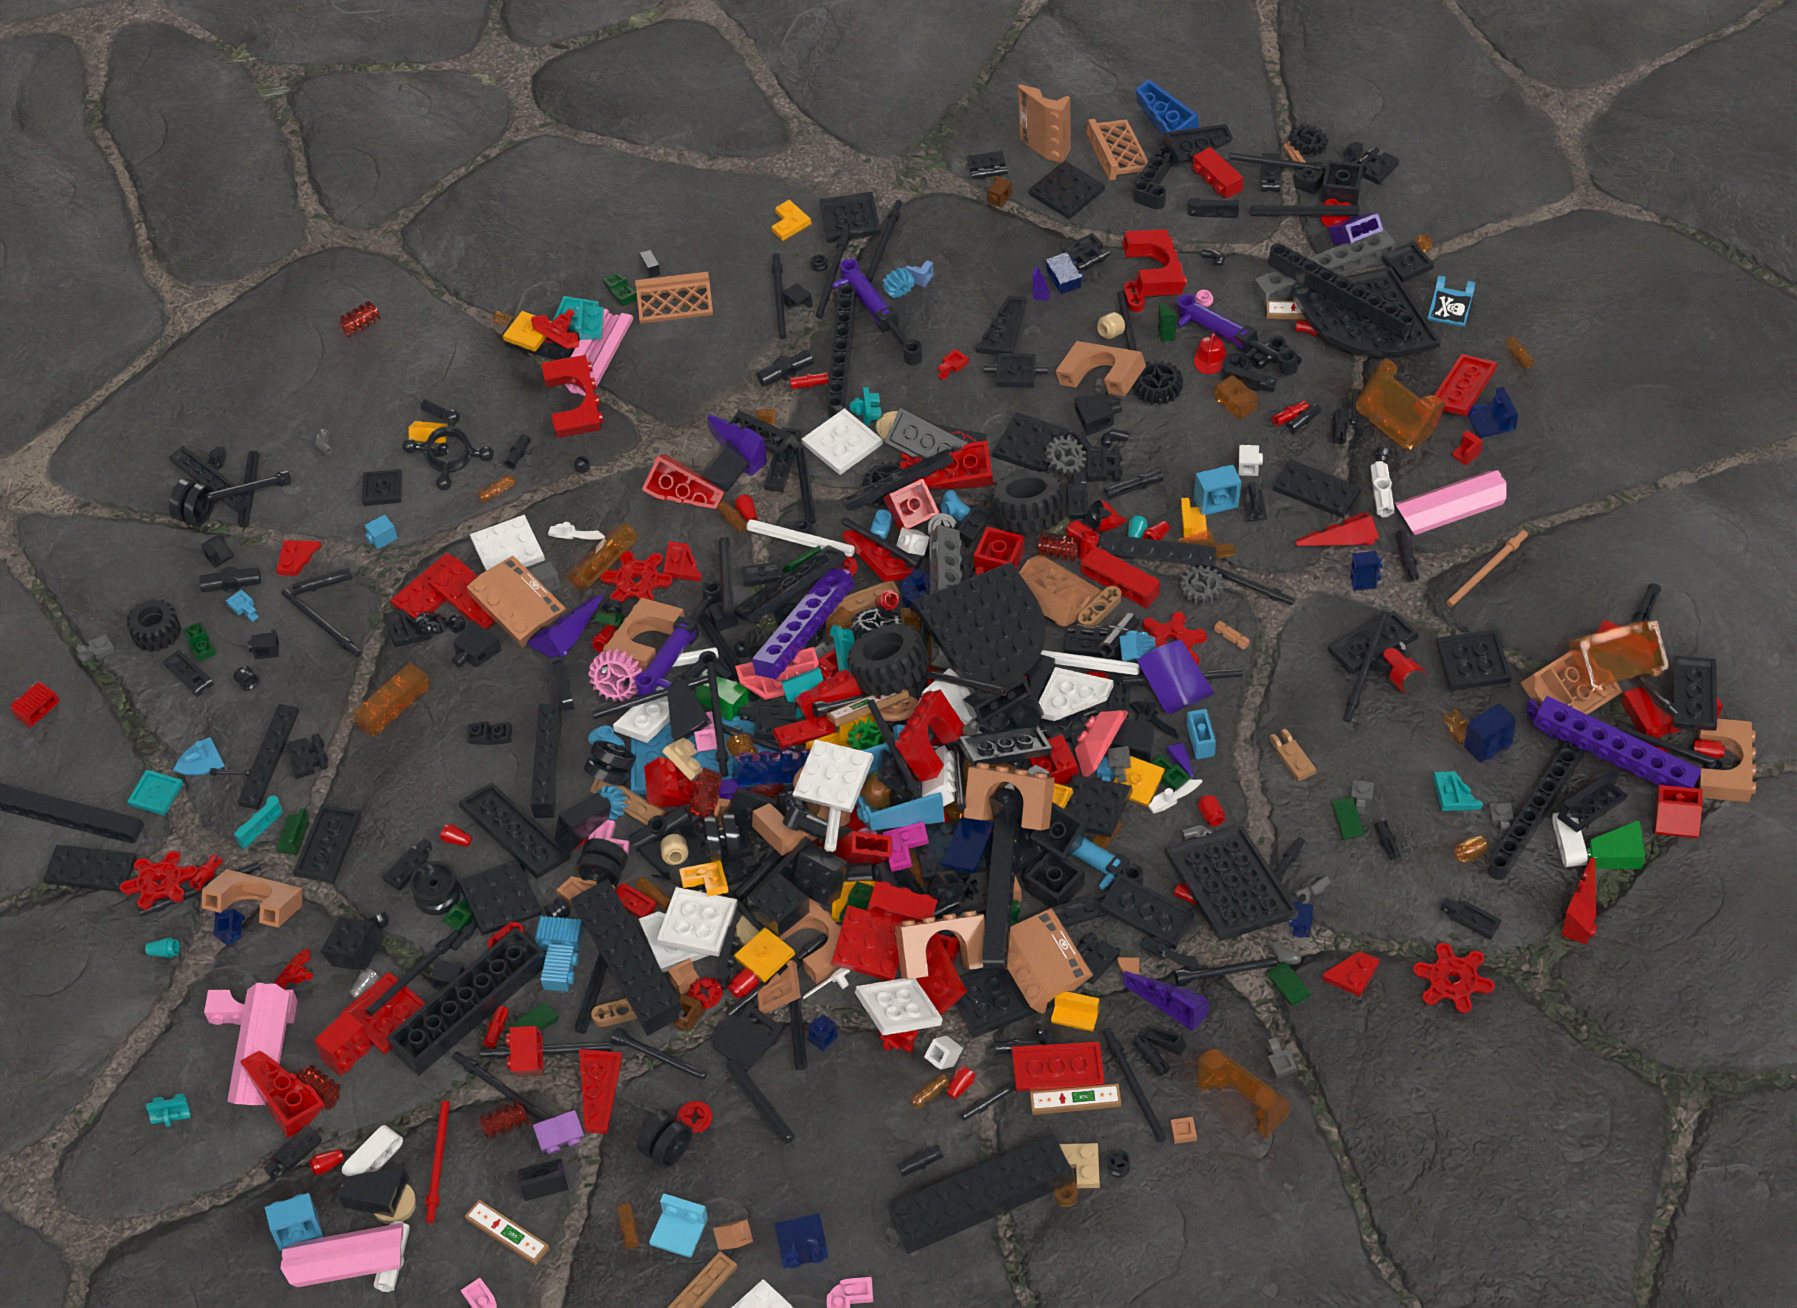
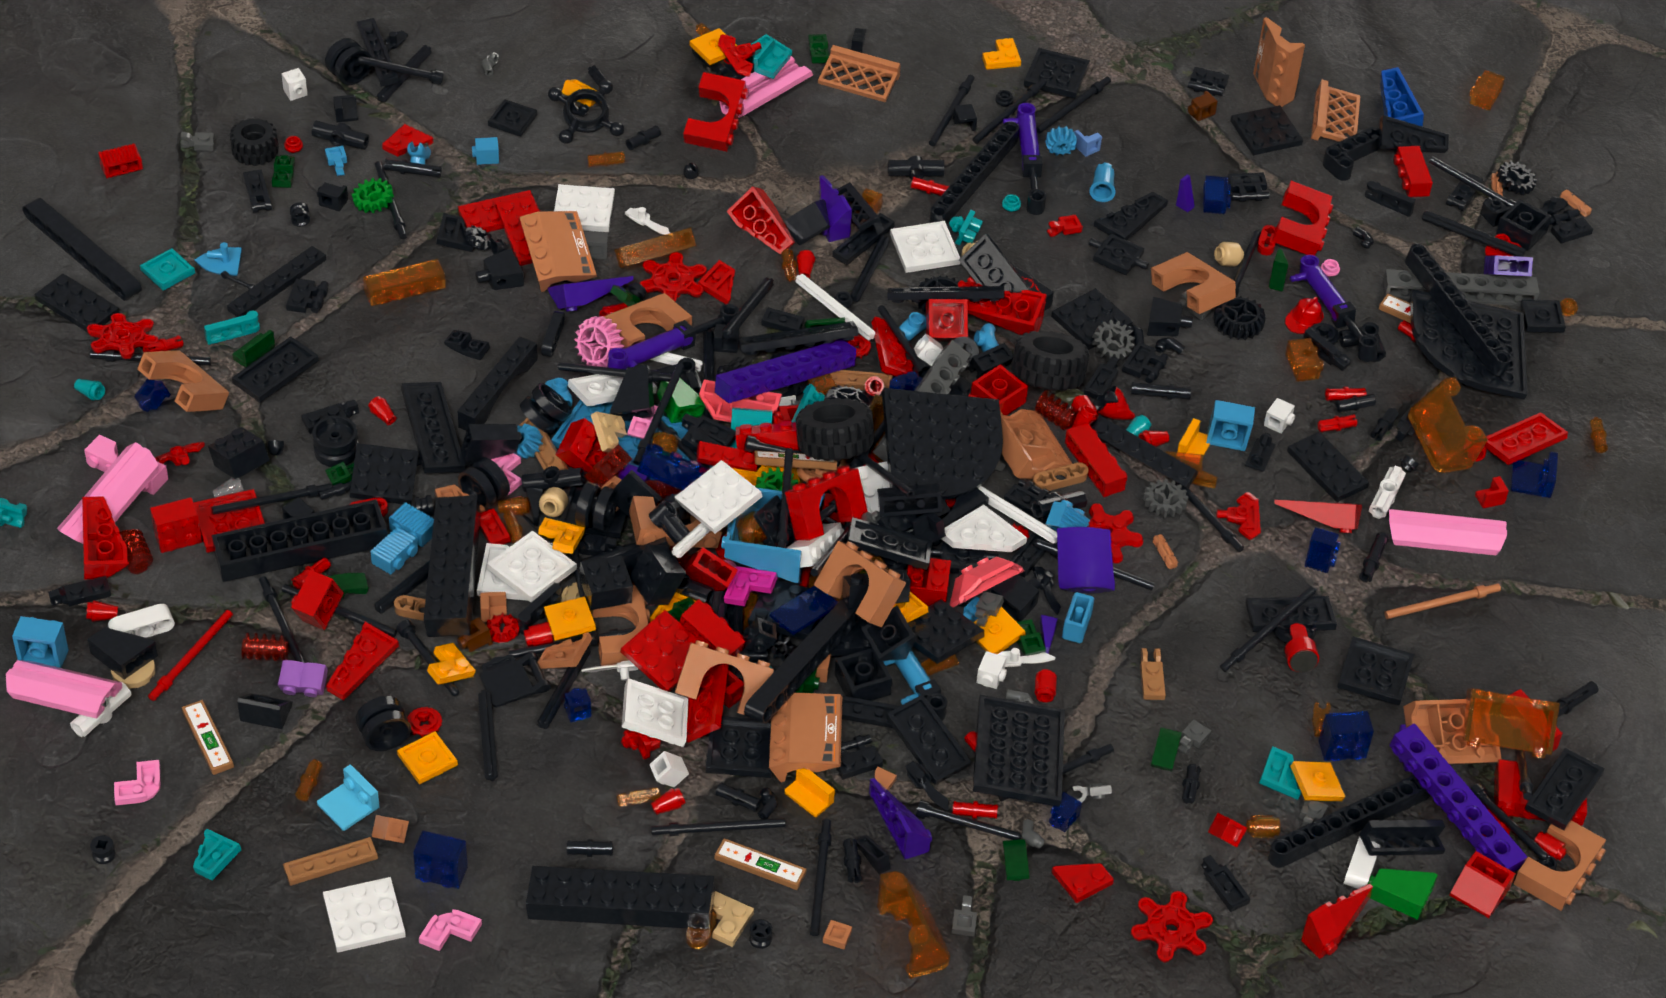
camera: 20 degrees right, 5 degrees down
(152, 548) = (294, 84): none -> white brick
(190, 610) = (293, 144): none -> red plate
(303, 626) = (372, 195): none -> green gear
(319, 569) = (419, 153): none -> dark azure piece
(639, 869) = (518, 505): none -> clear orange cone
(686, 1051) = (452, 665): none -> light orange plate
(720, 1150) = (427, 757): none -> light orange plate
(890, 363) = (1011, 203): none -> teal plate
(961, 309) = (1103, 183): none -> dark azure plant
(1057, 1066) = (760, 827): red plate -> none
(1158, 819) = (991, 670): none -> white brick
(1225, 955) = (975, 809): none -> red pin
(1231, 65) = (1486, 90): none -> clear orange brick
(1278, 567) = (1245, 515): none -> red piece
(1300, 444) = (1337, 423): none -> red axle
(1370, 141) = (1576, 203): none -> nougat axle
(1444, 867) = (1227, 829): none -> red panel
(1451, 305) = (1560, 369): flag -> none
(1489, 785) = (1317, 781): none -> light orange plate

